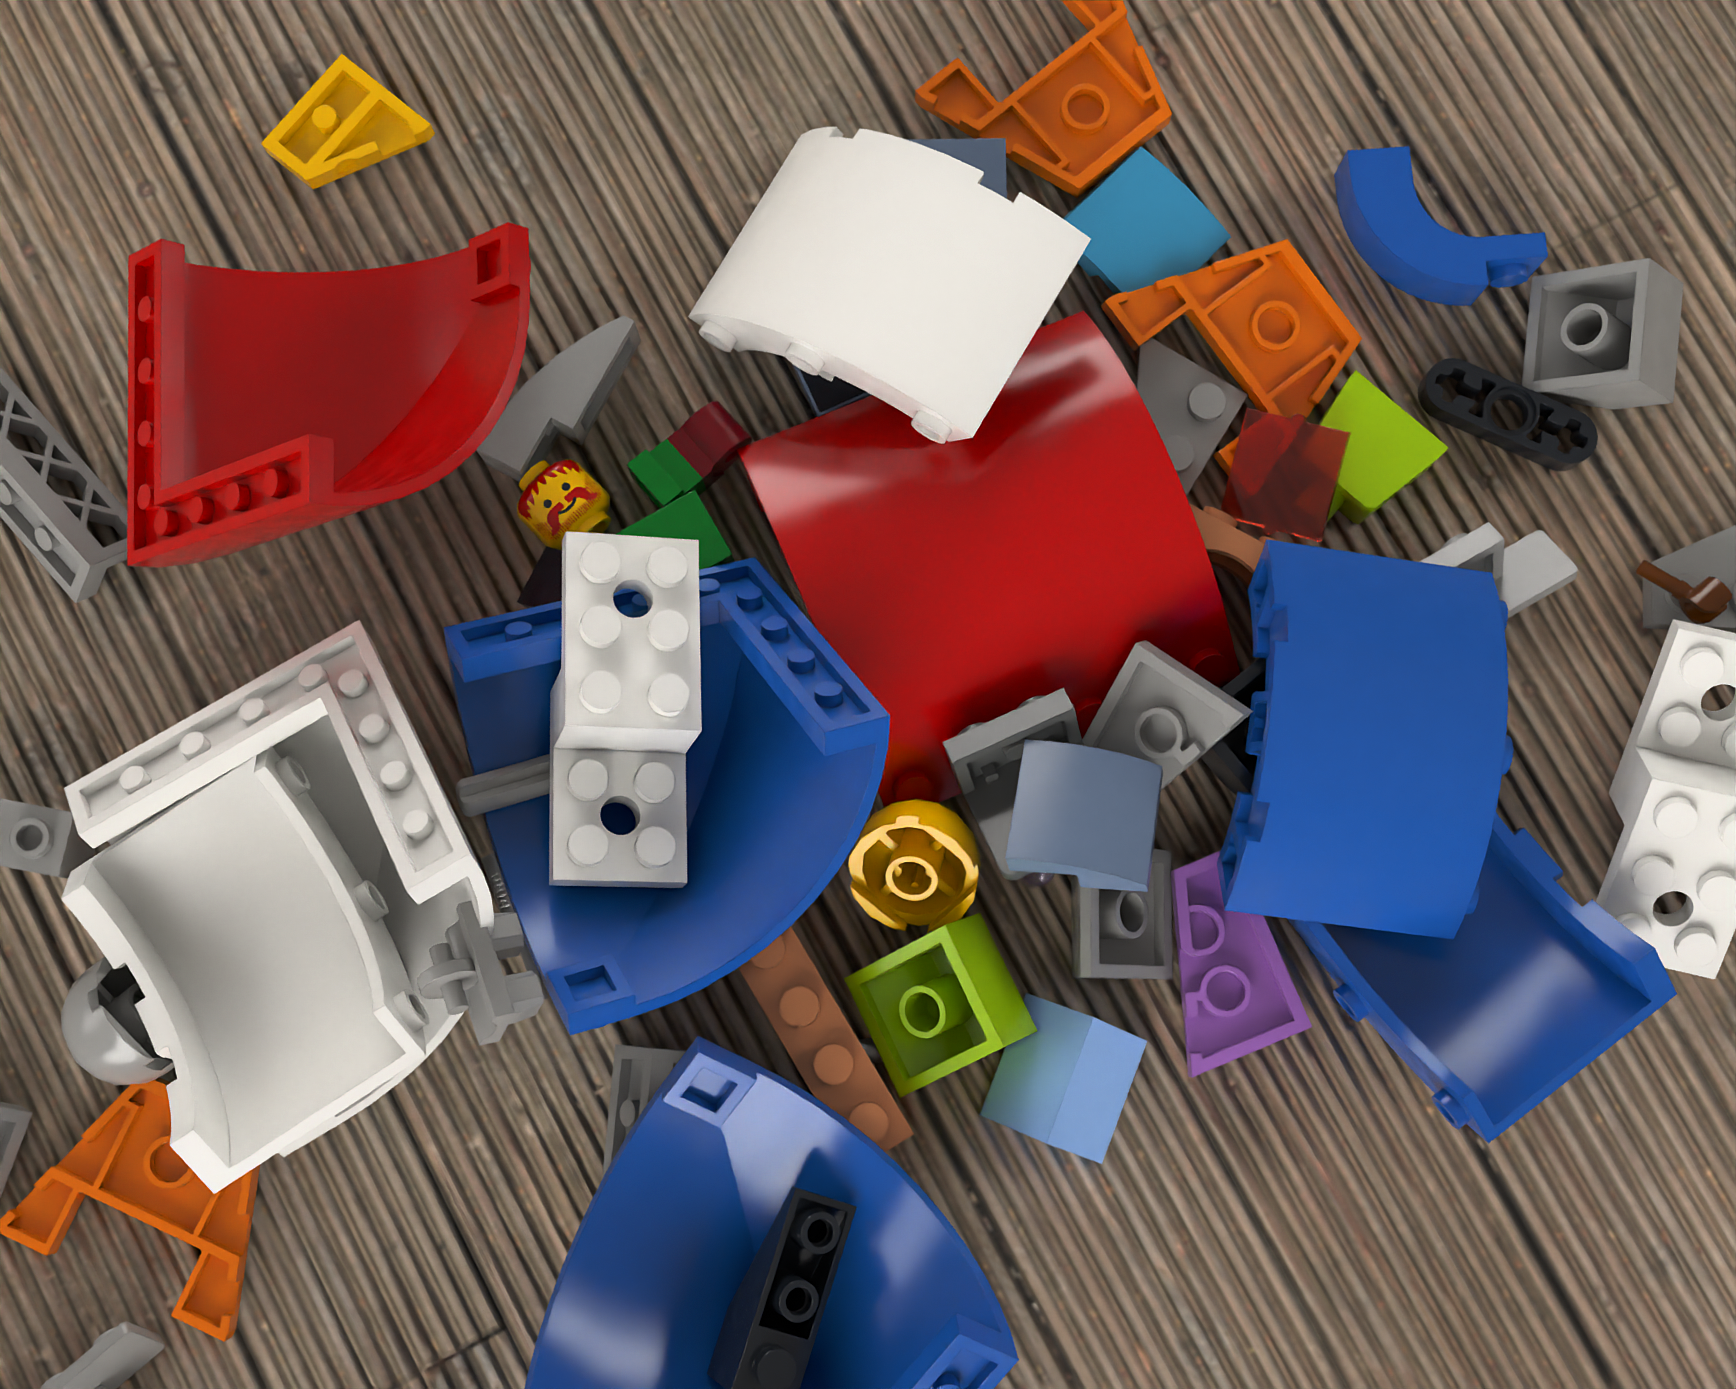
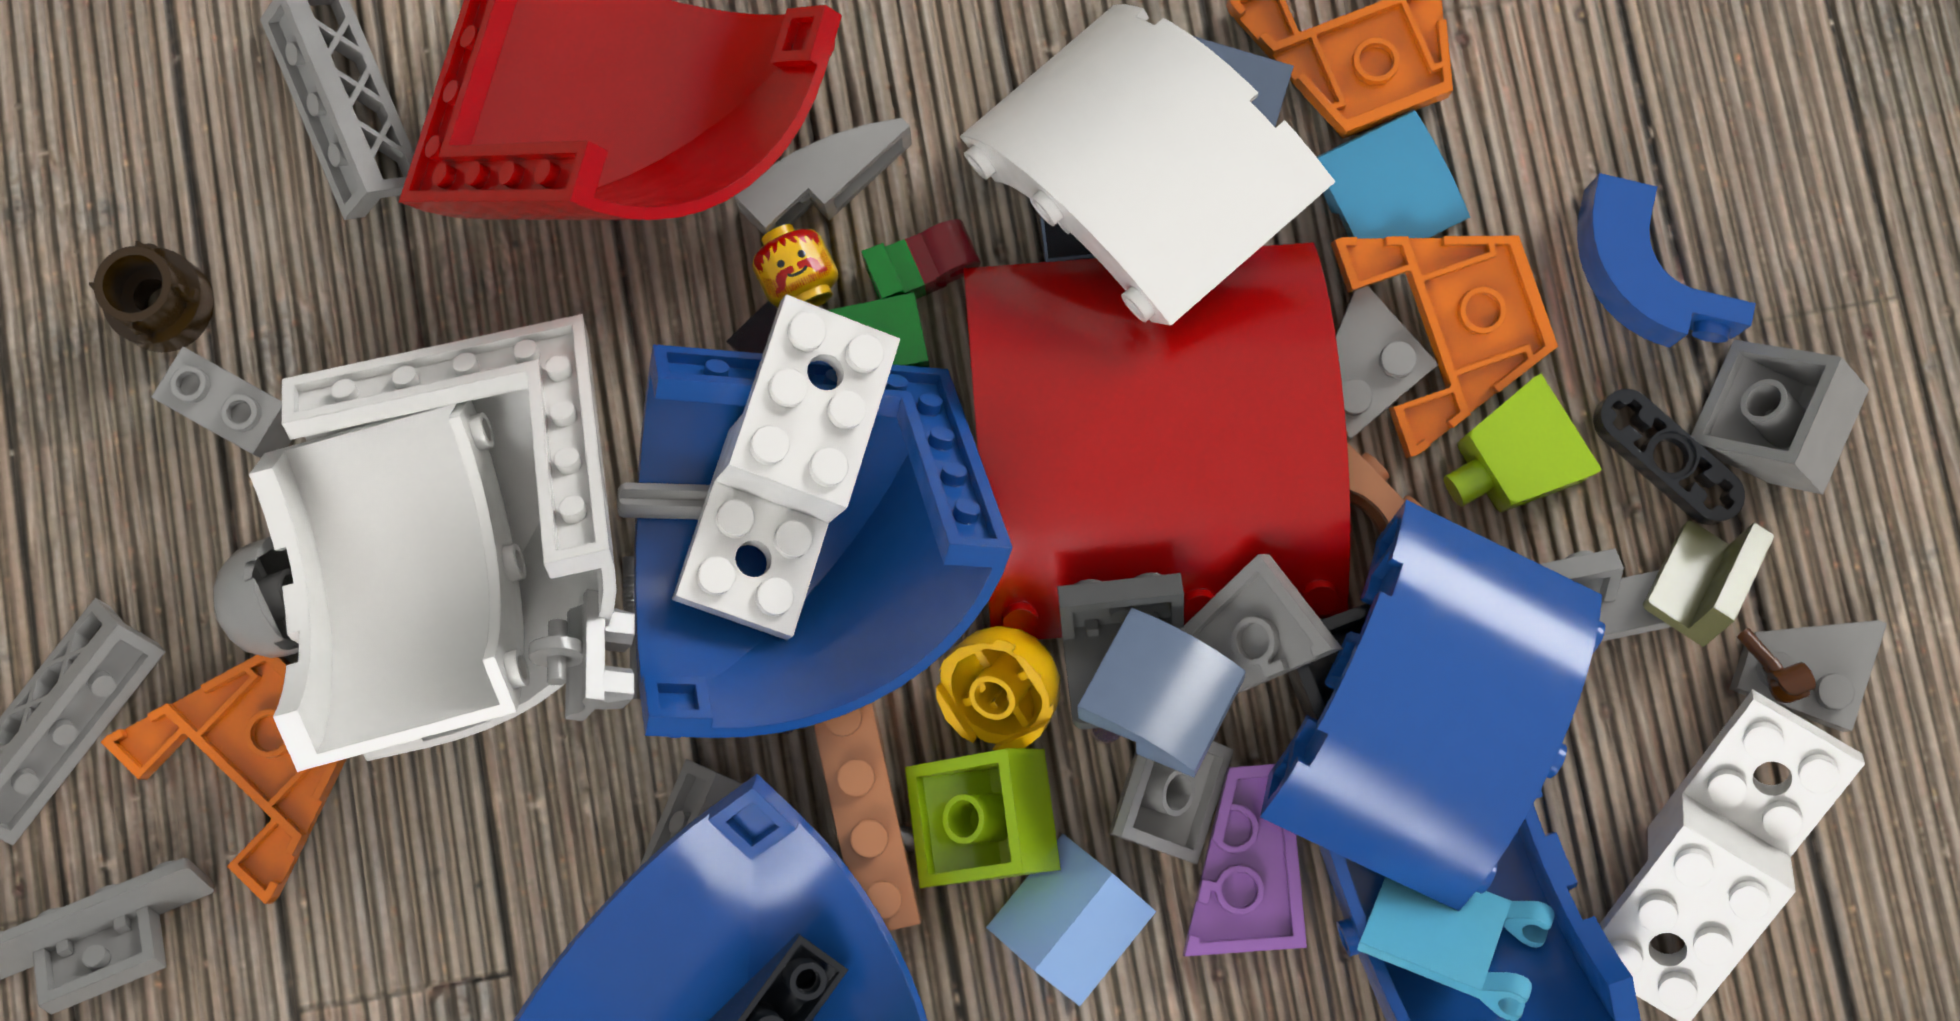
camera: 20 degrees right, 0 degrees up
(1285, 474) = (1445, 446): clear red piece -> none
(1464, 973) = (1456, 944): none -> medium azure flag
(1588, 526) = (1706, 580): none -> panel

